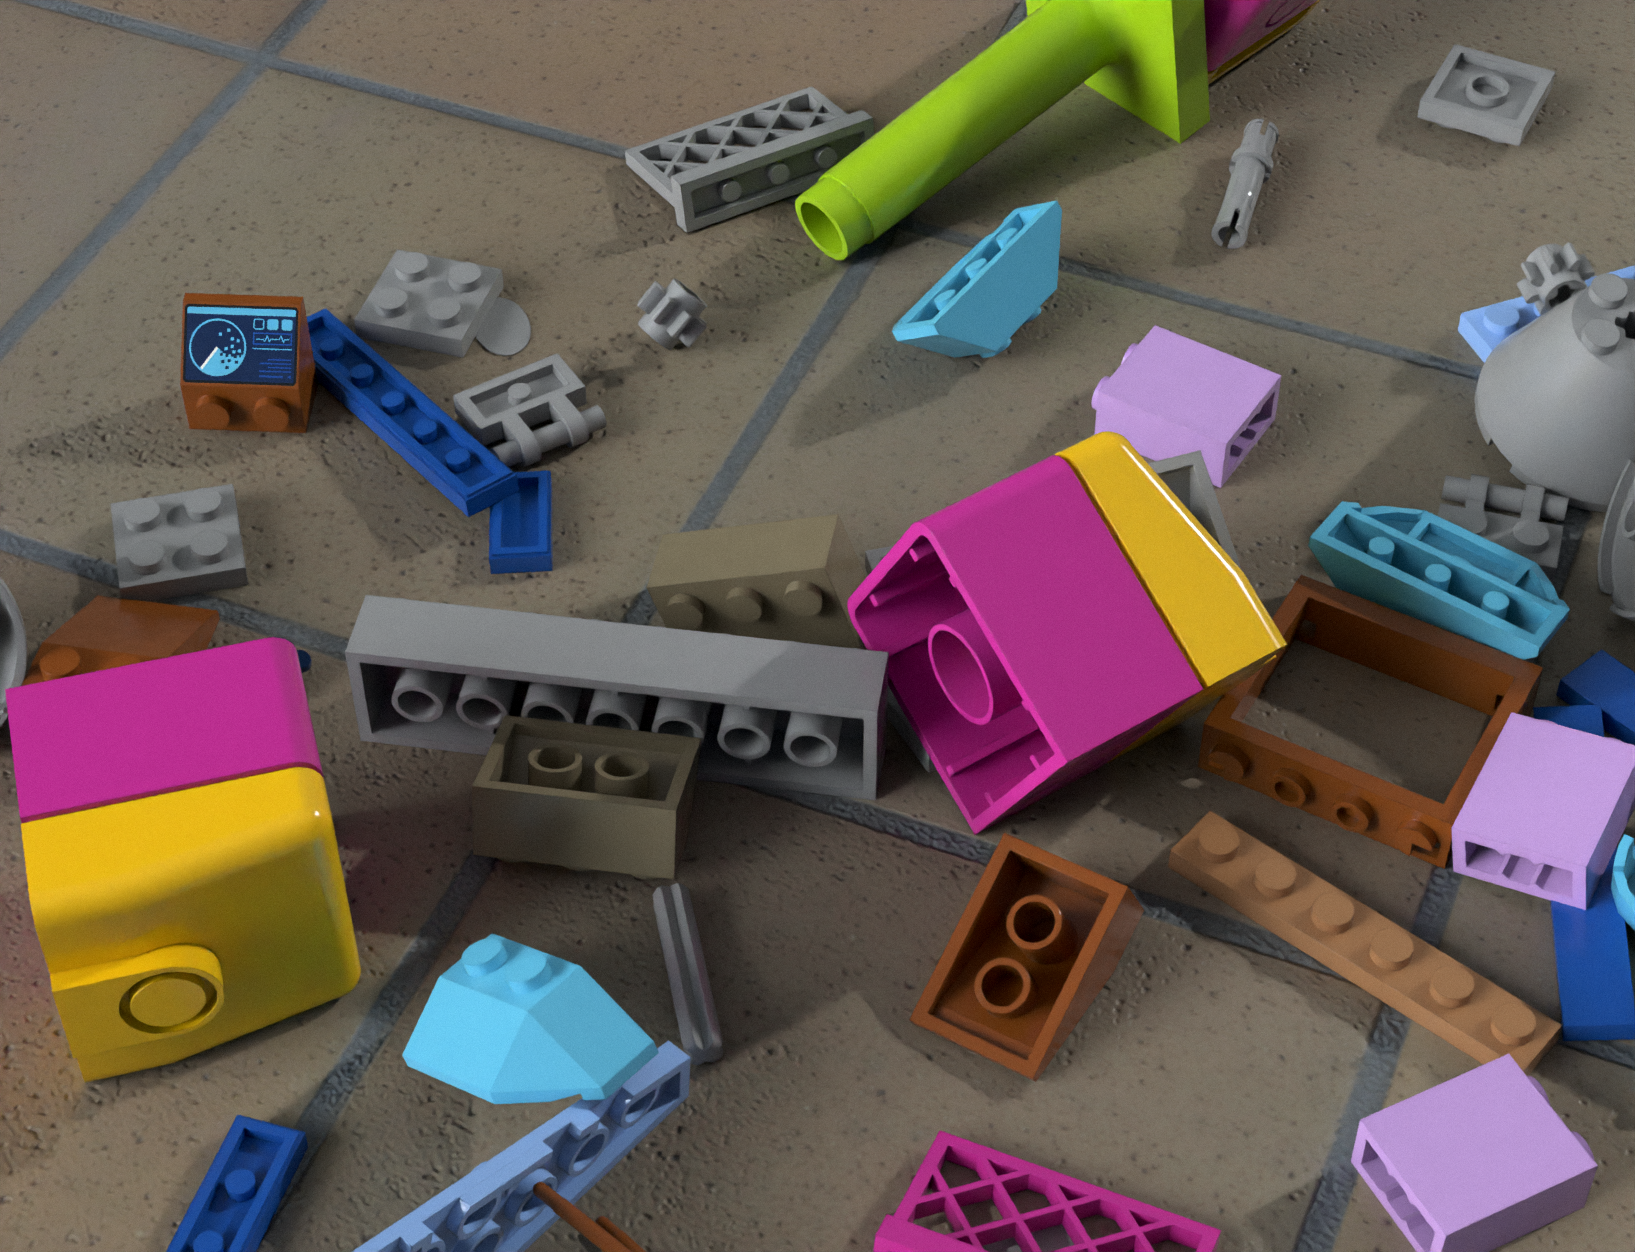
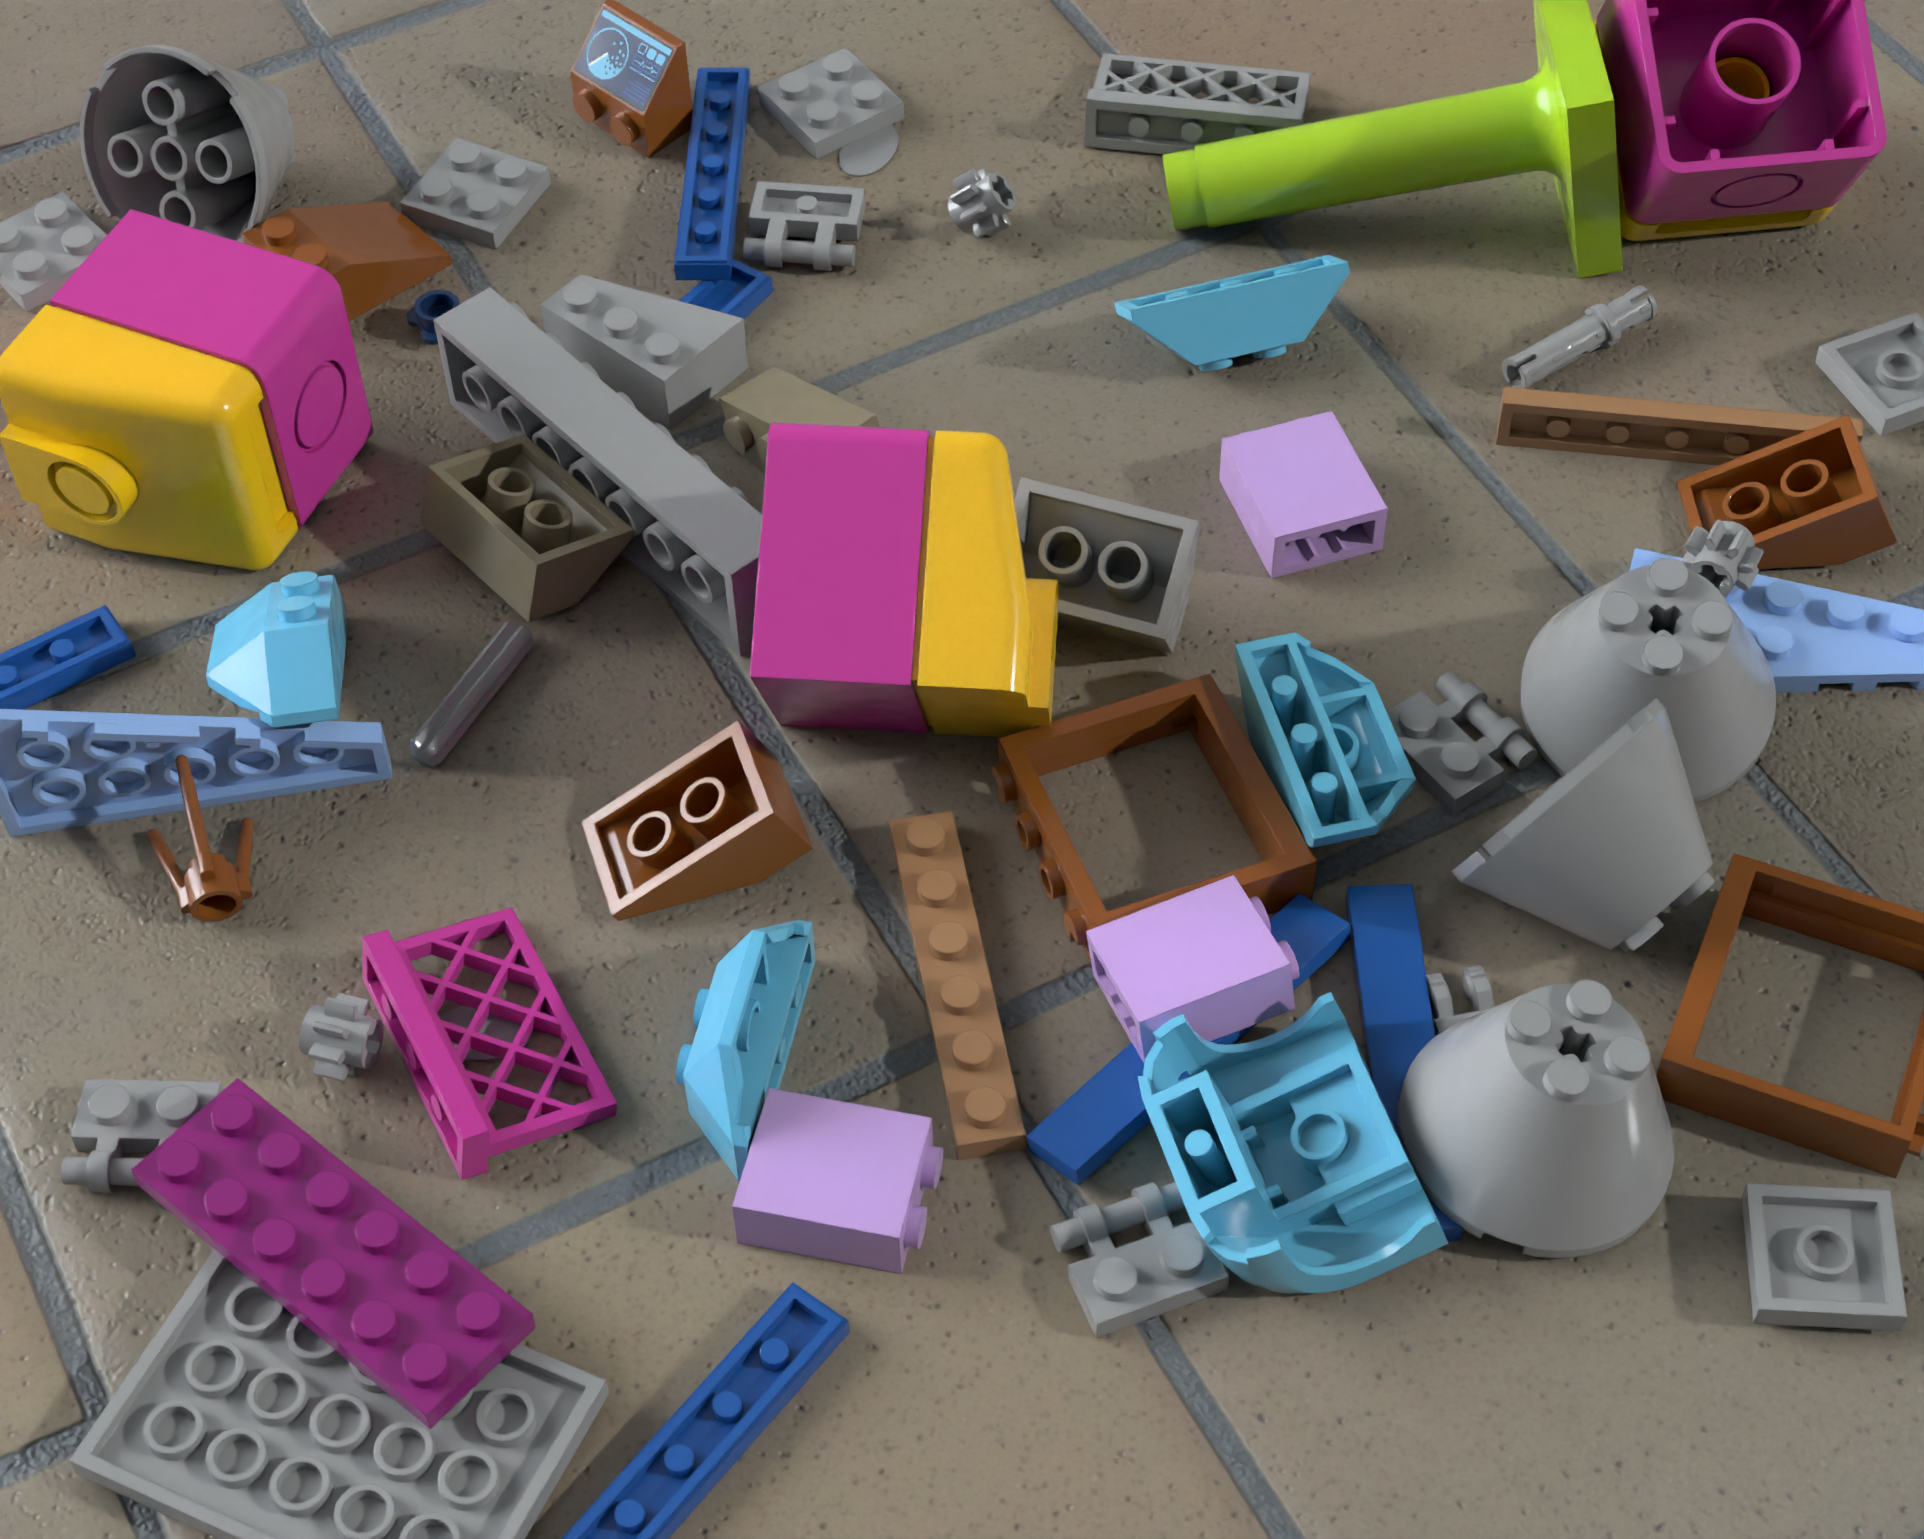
camera: 40 degrees right, 5 degrees up
(524, 567) = (648, 345): none -> light grey wedge
(1285, 1110) = (745, 1034): none -> medium azure wedge
(1391, 214) = (1644, 426): none -> medium nougat plate
(1528, 201) = (1799, 498): none -> dark orange slope

